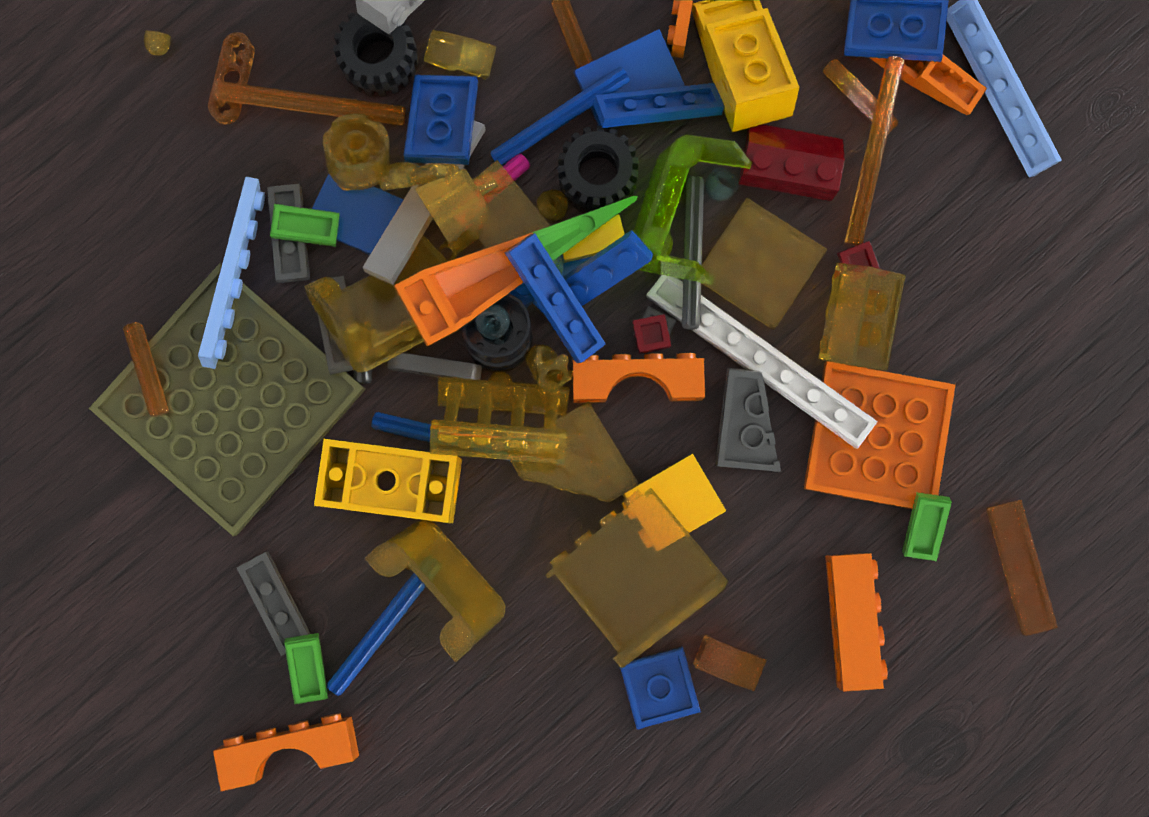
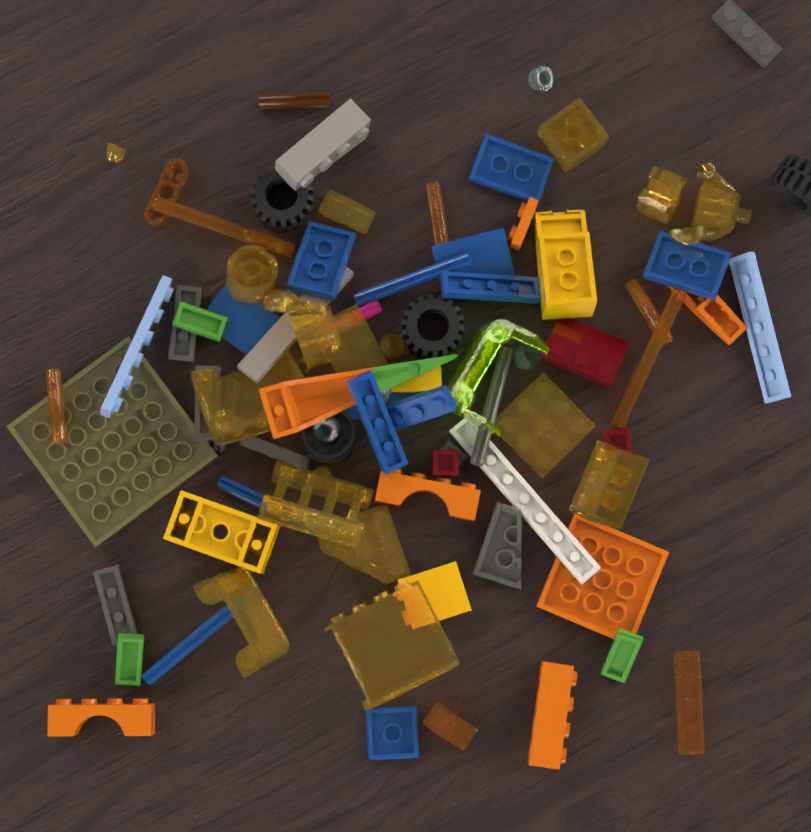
camera: 10 degrees right, 0 degrees up
(548, 368) = (361, 471): clear yellow animal -> none

